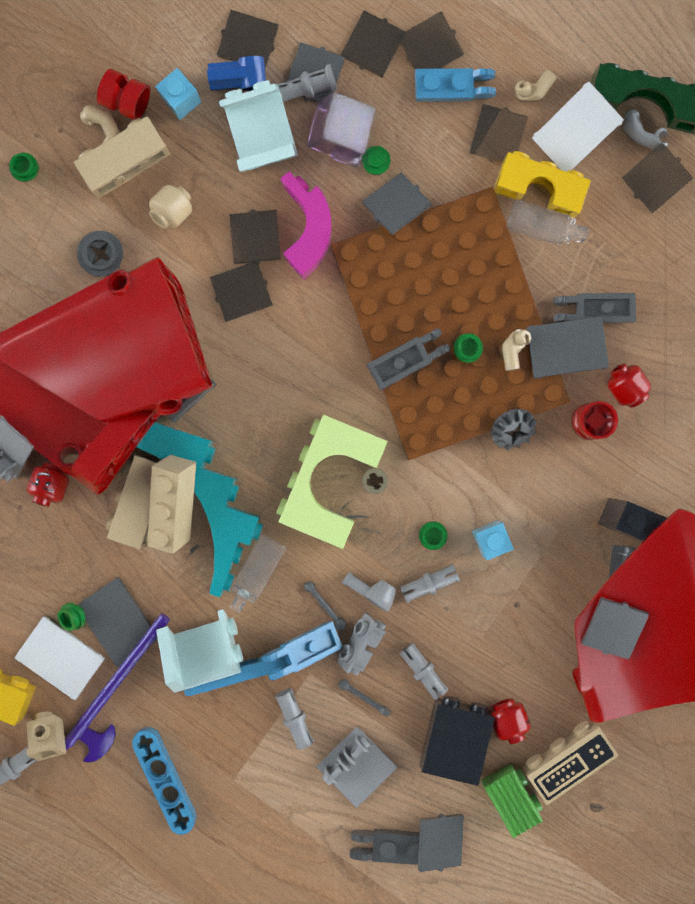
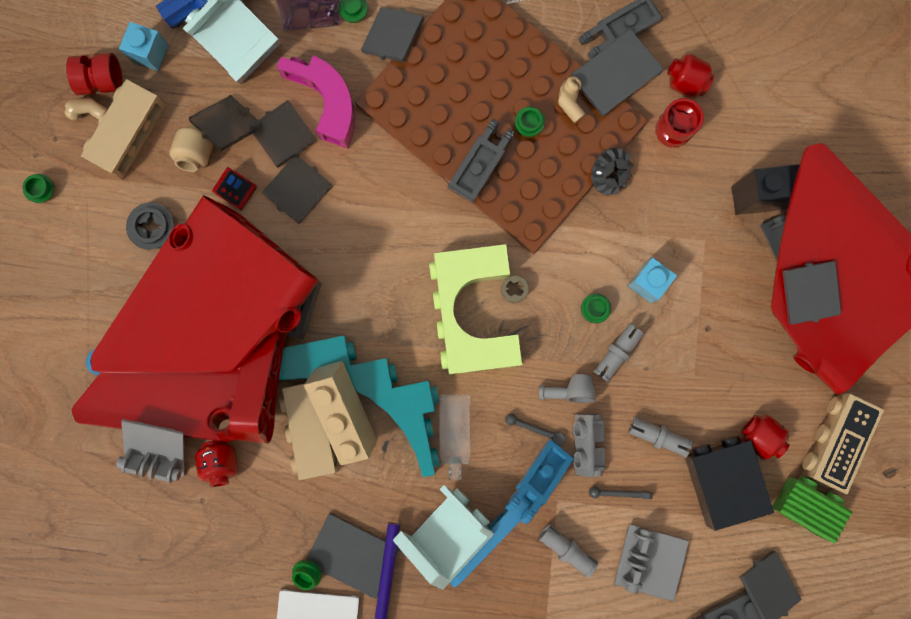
camera: 25 degrees left, 5 degrees down
(188, 261) = (234, 188): none -> slope
(211, 201) = (225, 123): none -> clear smoke piece

